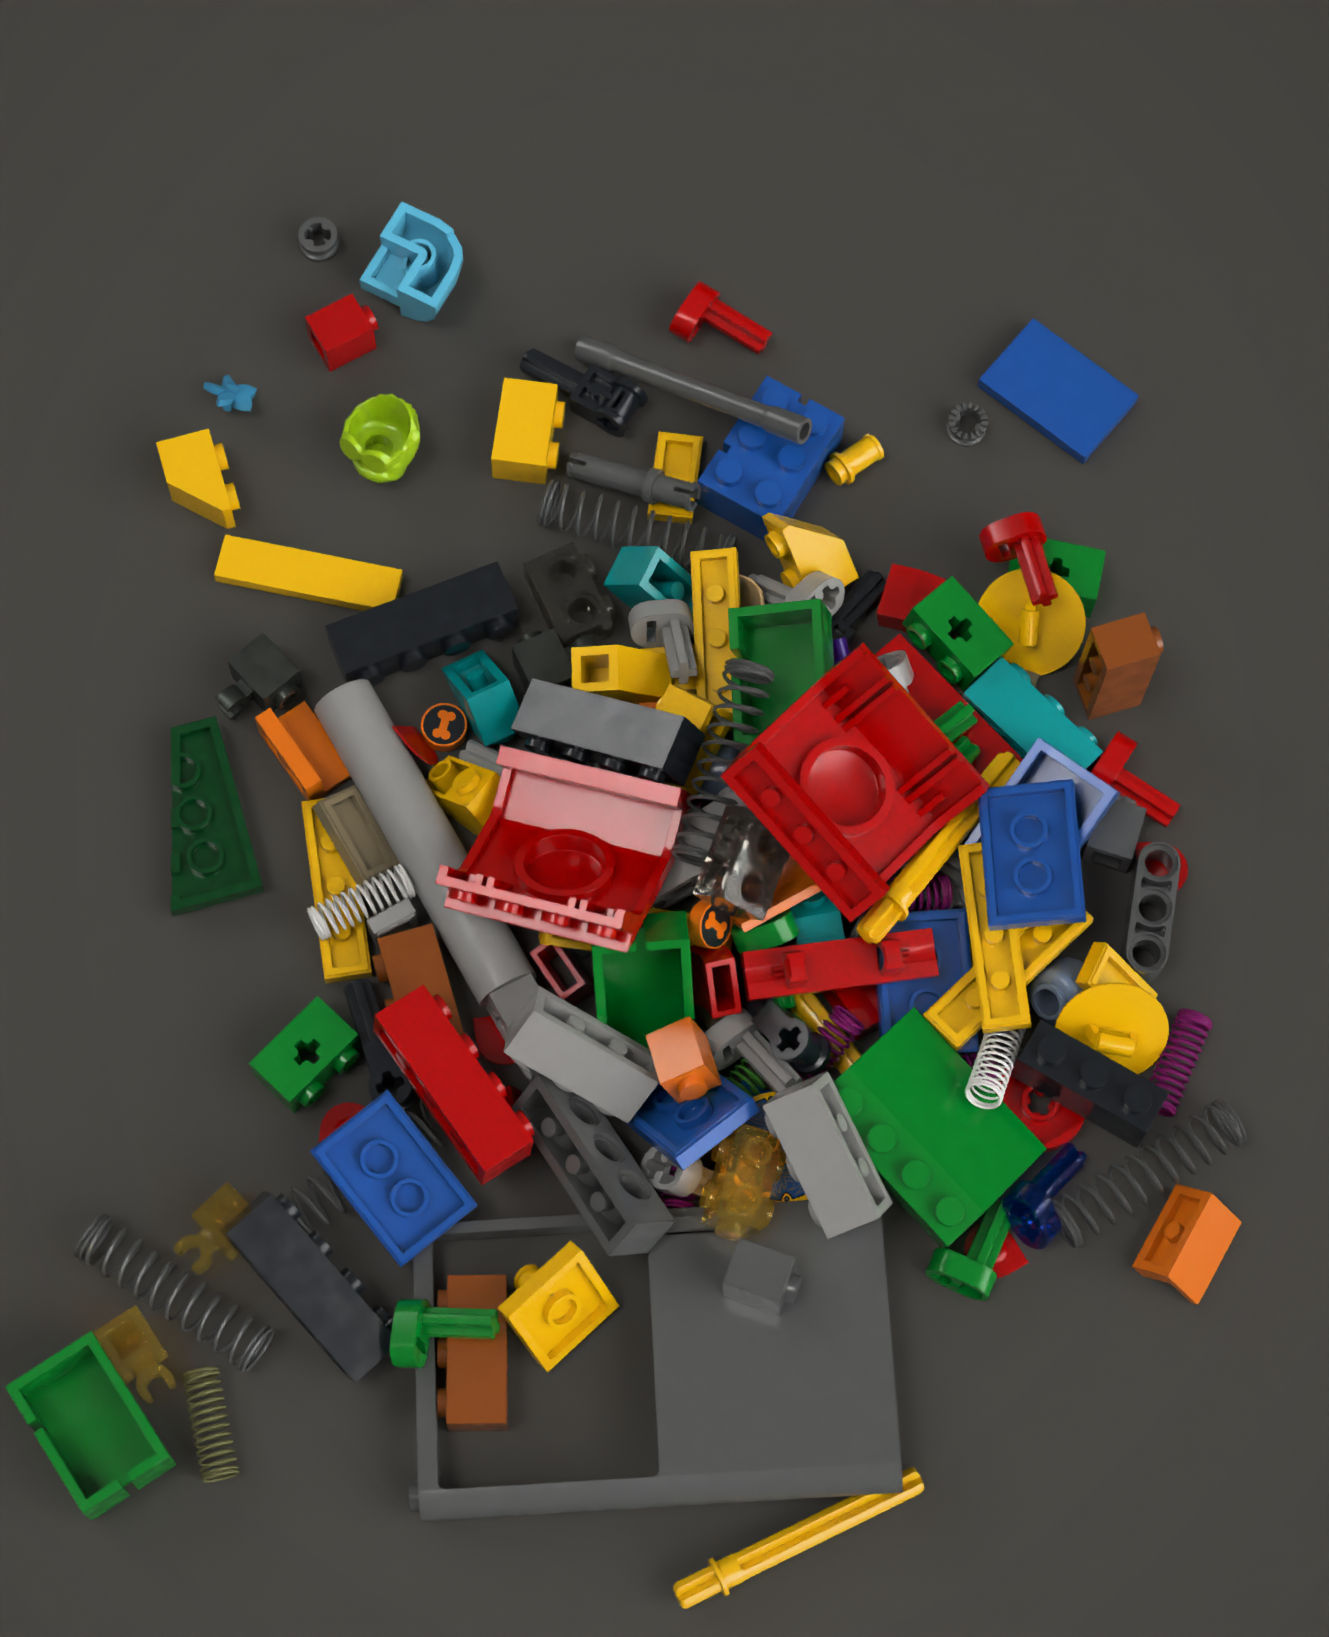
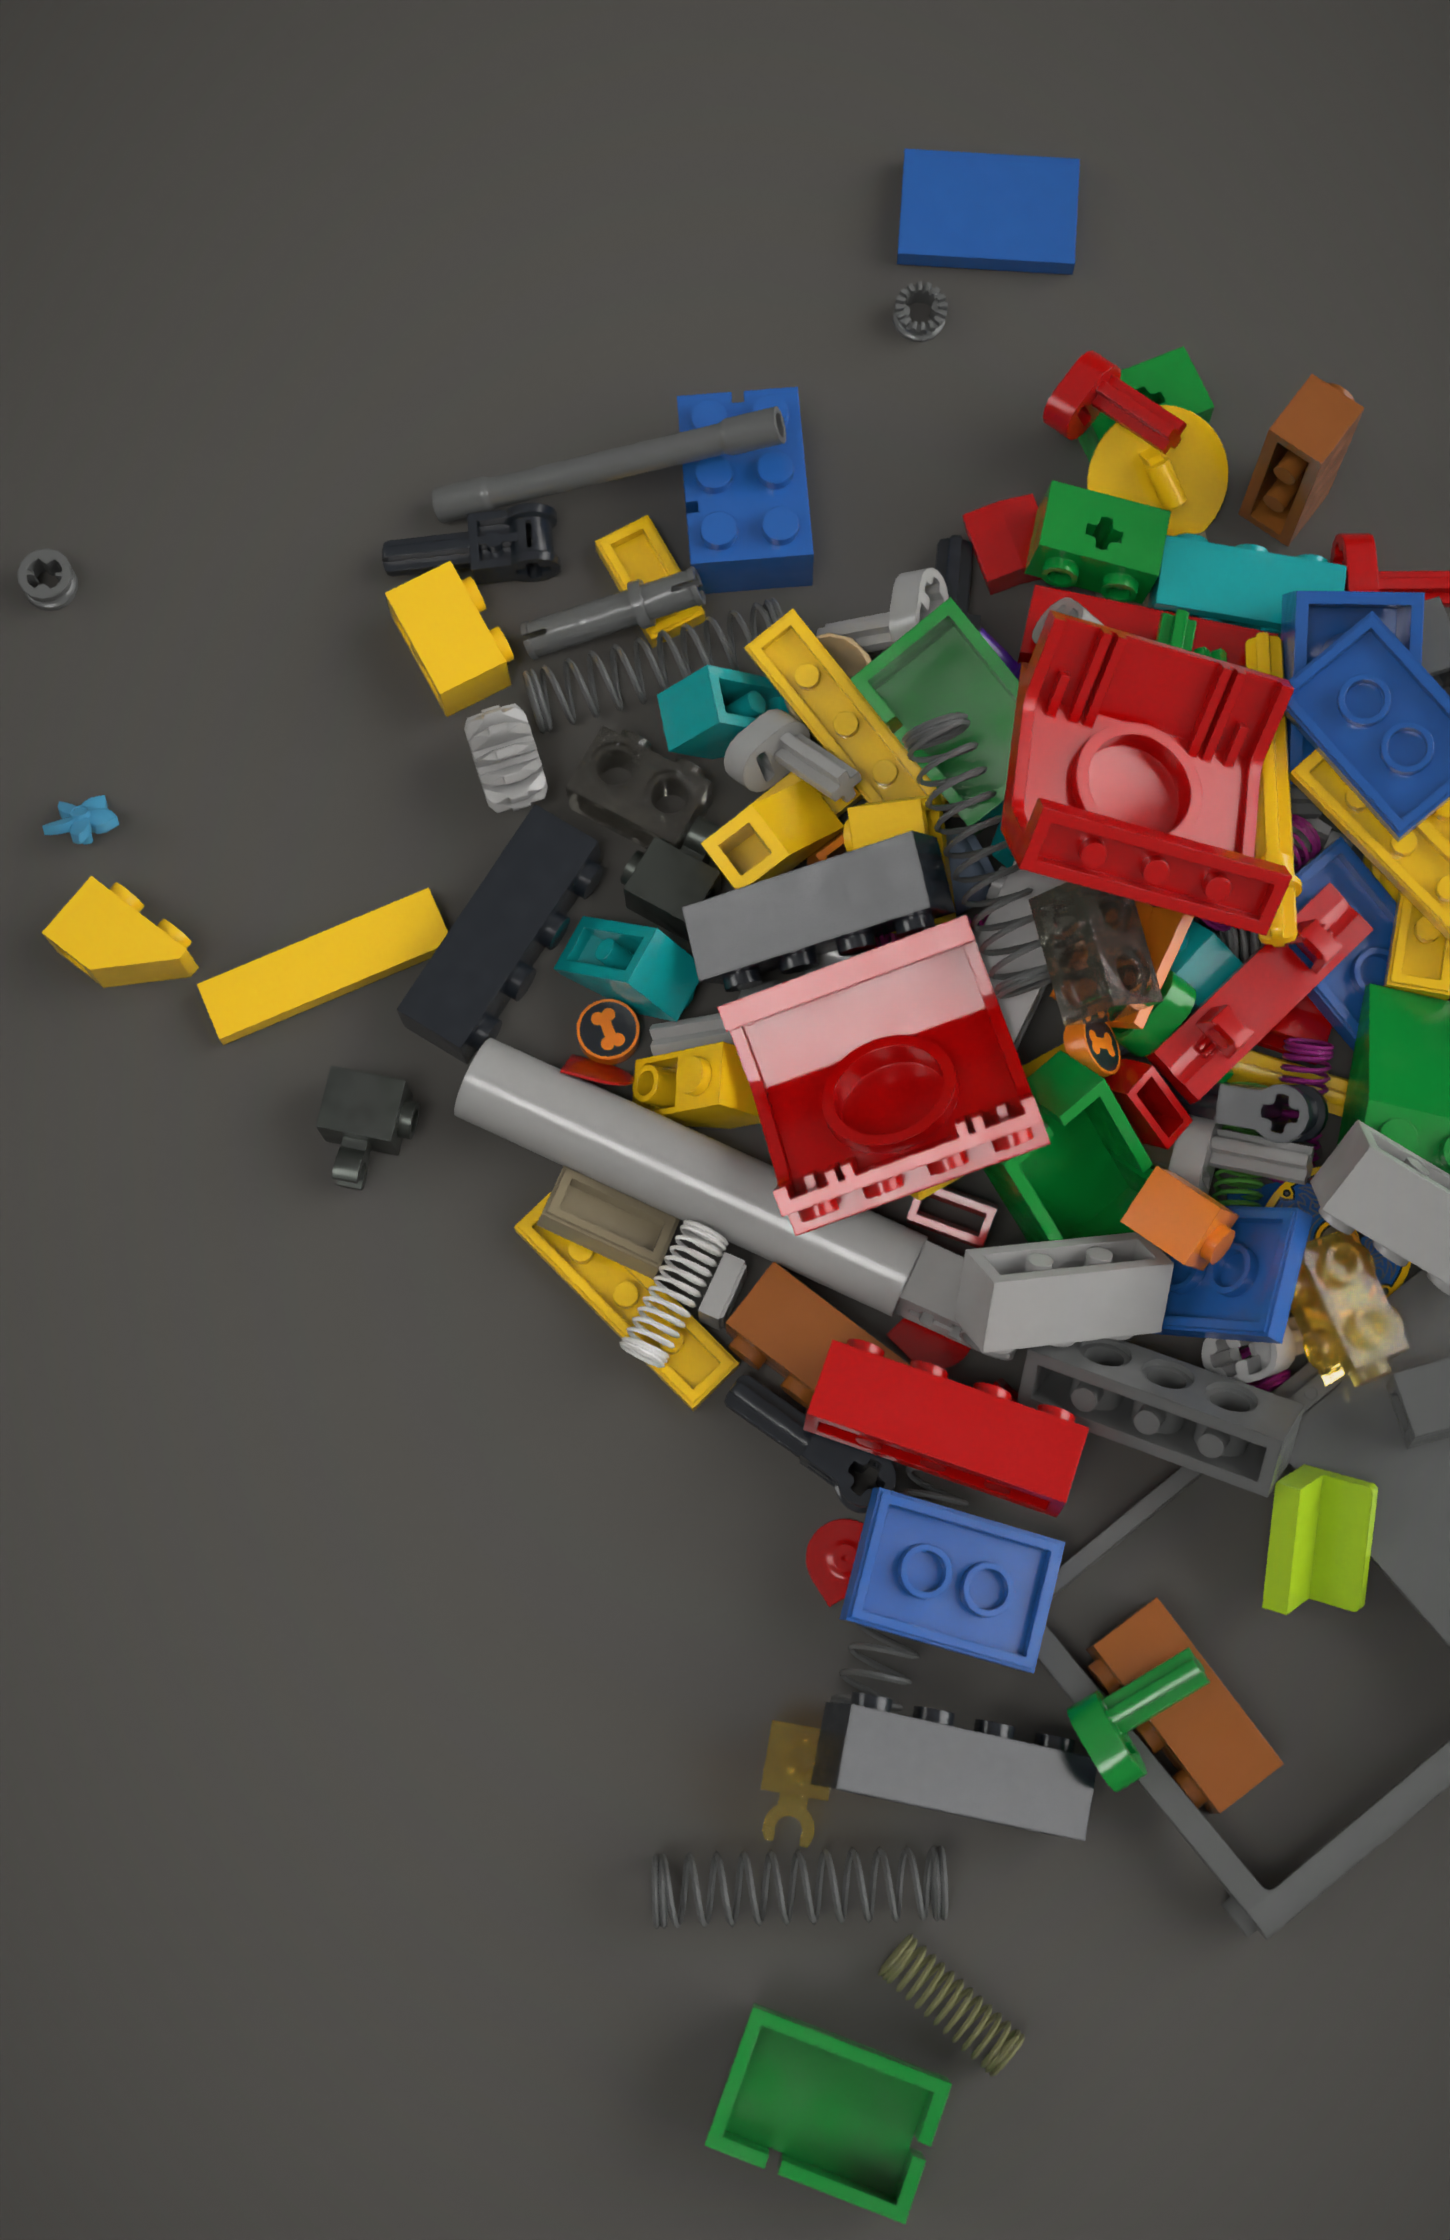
camera: 30 degrees left, 5 degrees up
(135, 1351) = (807, 1986): clear yellow brick -> none
(209, 832) = (435, 1332): dark green wing -> none
(303, 750) = (471, 1167): orange panel -> none
(312, 1031) = (729, 1471): green brick -> none
(342, 331) = (156, 665): red brick -> none
(381, 437) = (296, 753): lime hair -> none
(415, 263) = (184, 532): medium azure brick -> none
(502, 523) = (506, 758): none -> light grey gear
(557, 1305) = (1226, 1591): yellow tile -> none
(626, 1310) = (1319, 1540): none -> lime panel
(703, 306) = (545, 369): red piece -> none
(807, 549) = (866, 562): yellow slope -> none
(845, 465) = (831, 430): yellow pin -> none

